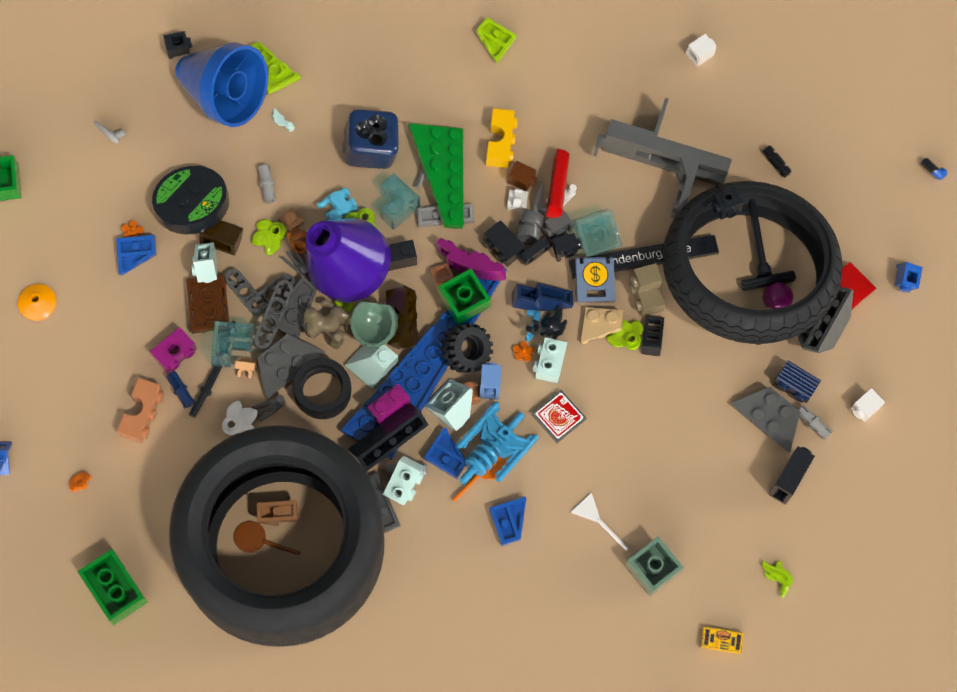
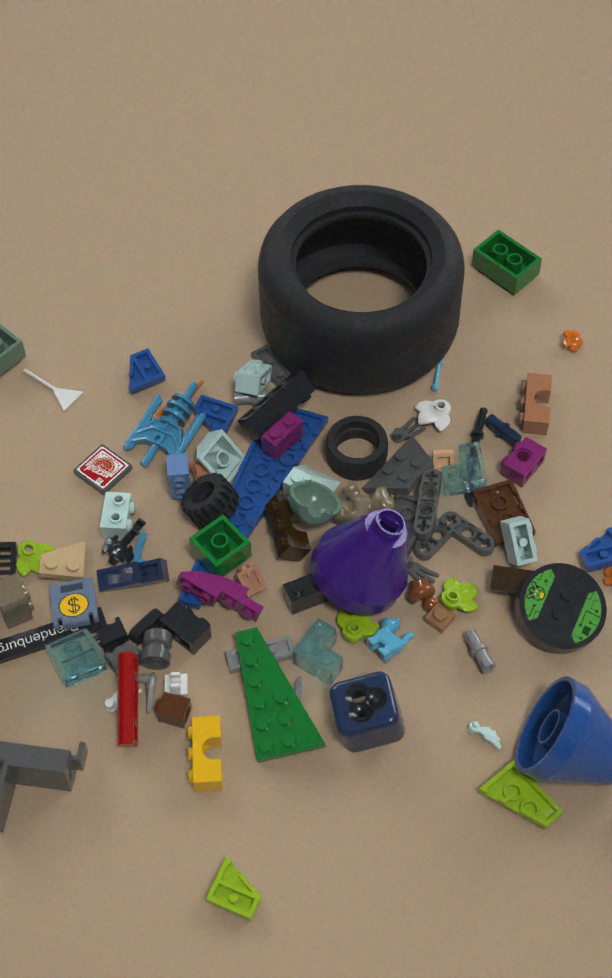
camera: 175 degrees right, 15 degrees down
(523, 352) = (150, 525): orange plant -> none

